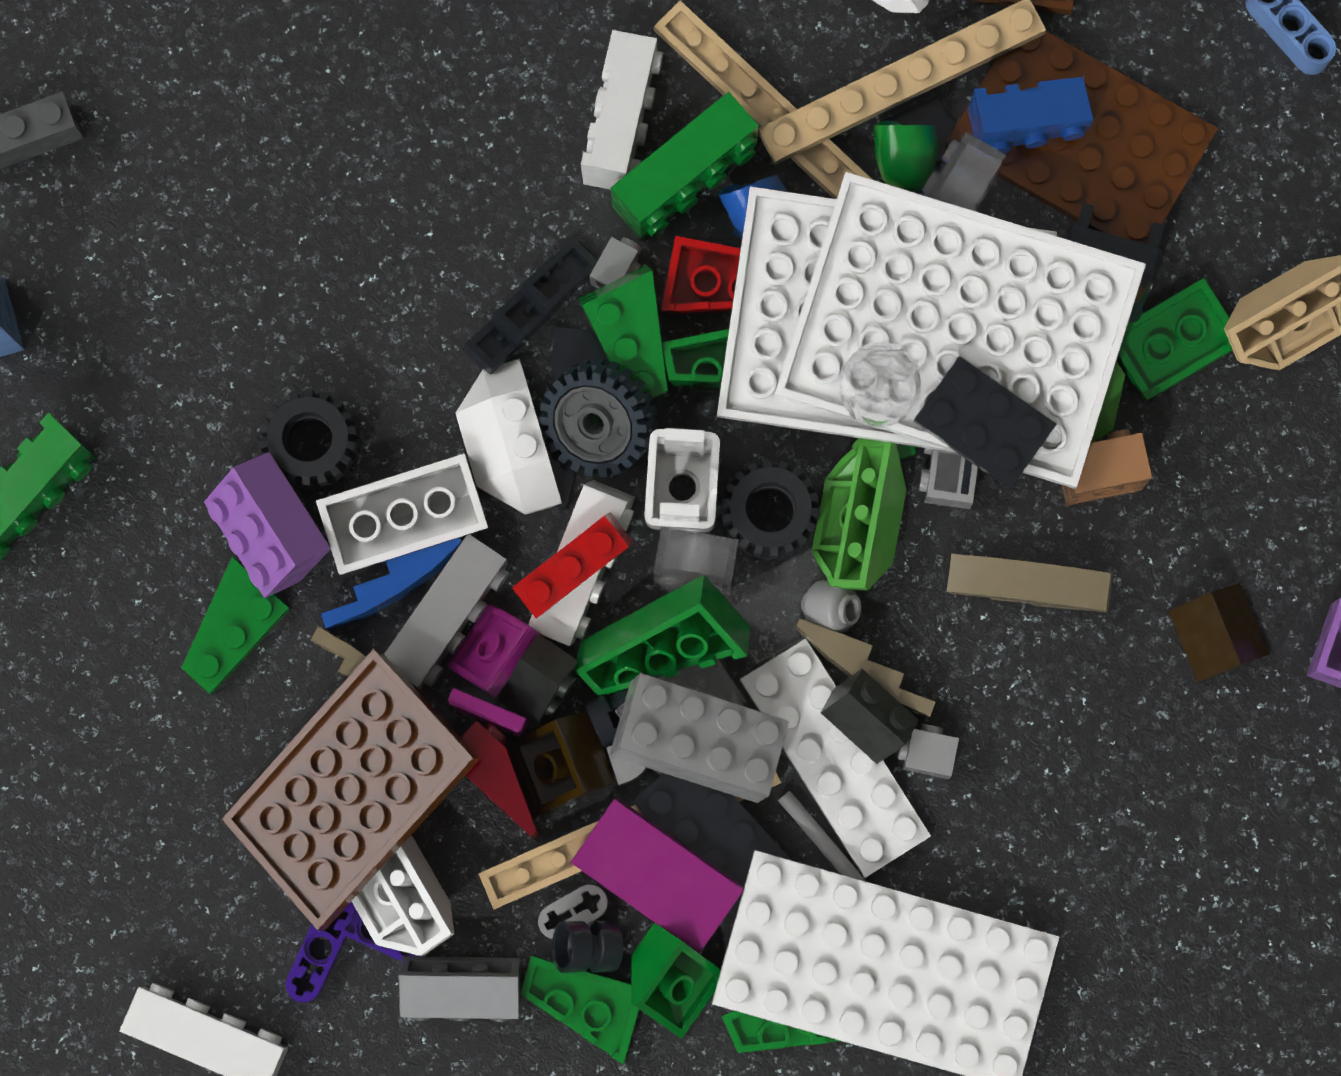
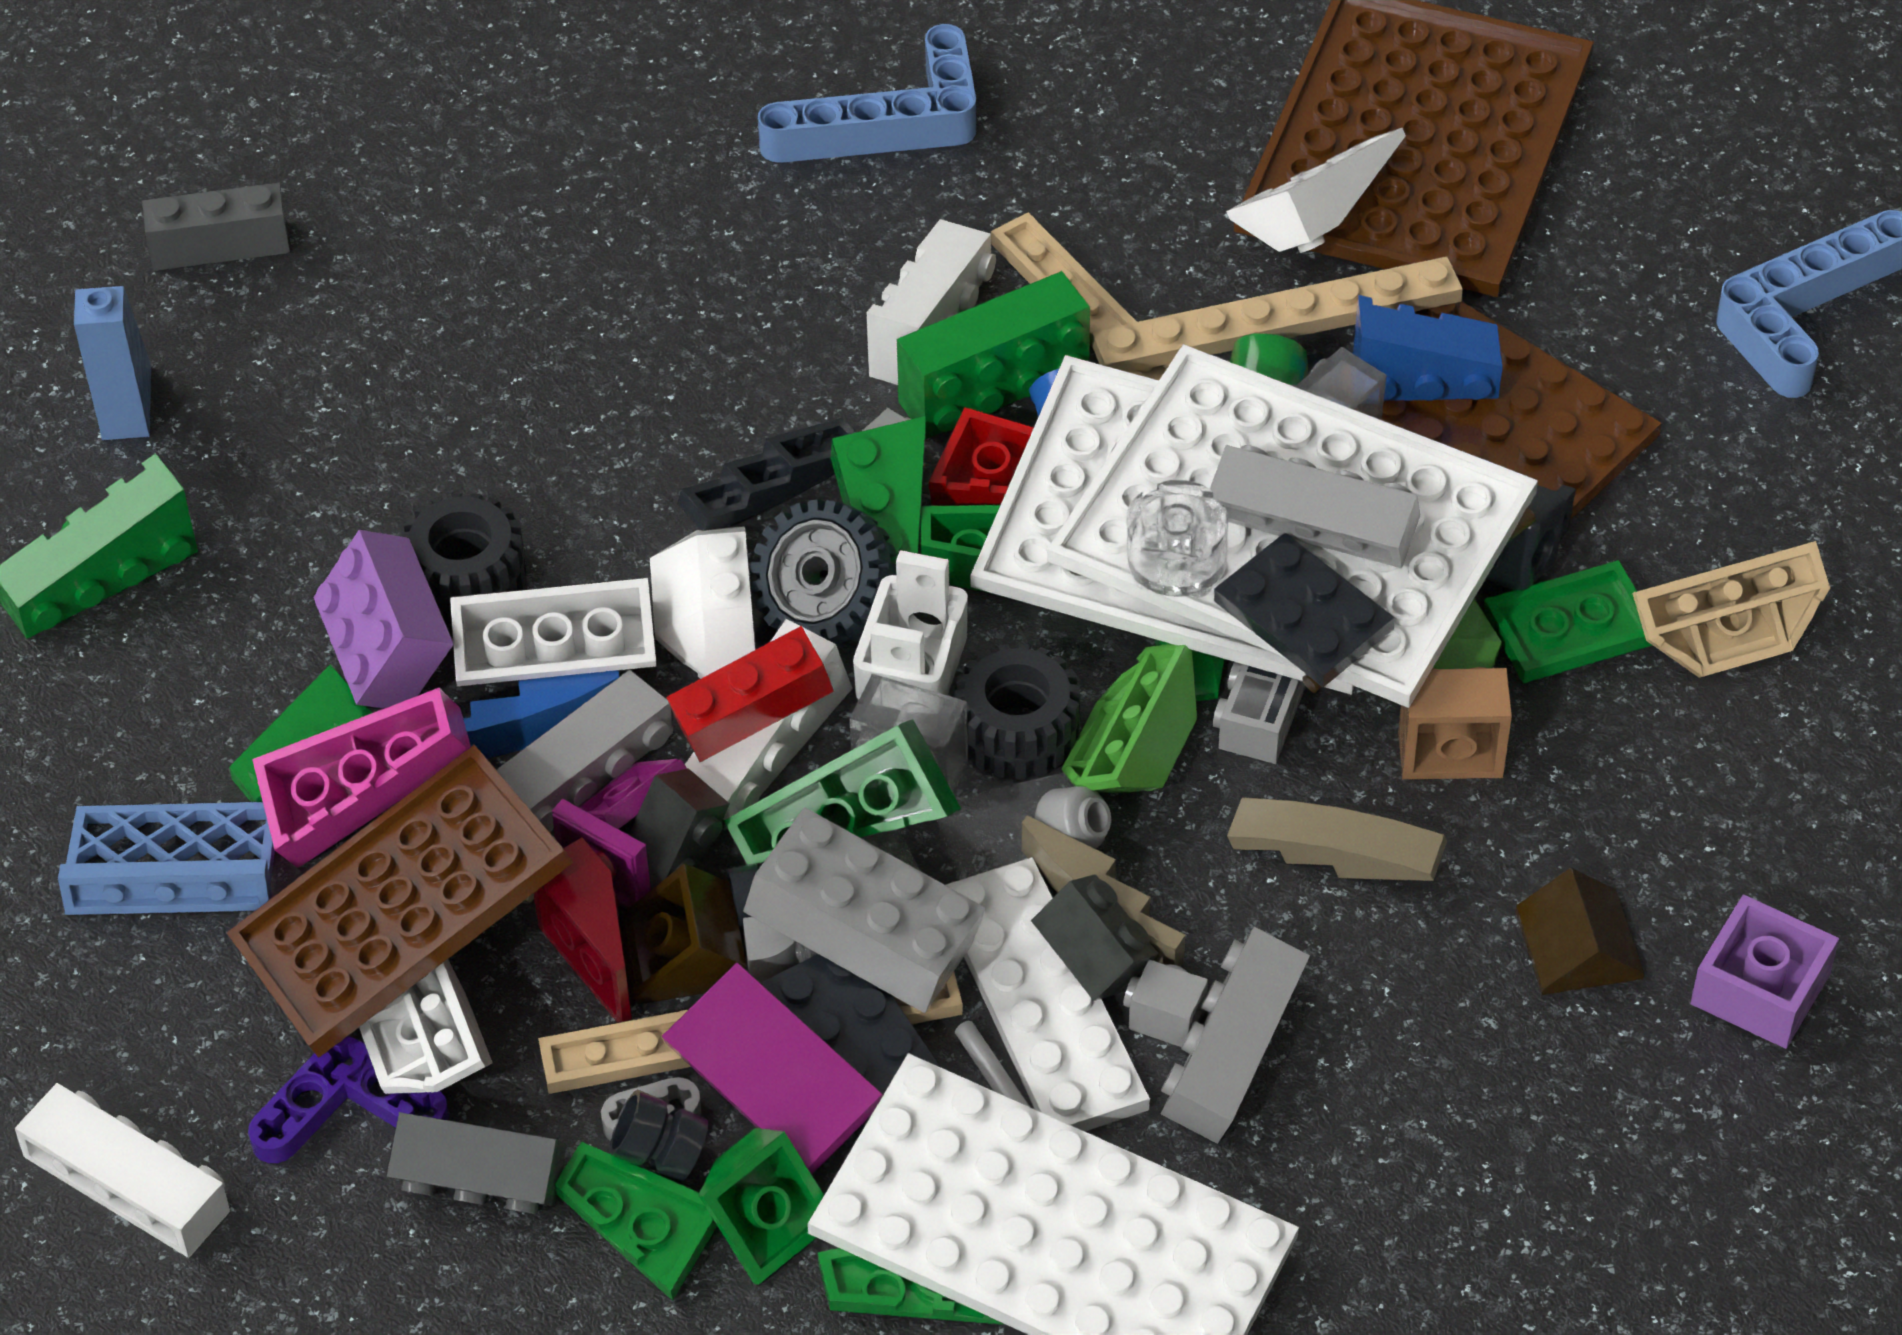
camera: 10 degrees right, 30 degrees down
(165, 786) = (171, 882): none -> medium blue fence
(273, 684) = (355, 772): none -> dark pink wedge
(980, 333) = (1316, 505): none -> light grey brick
(984, 775) = (1234, 1035): none -> light grey brick

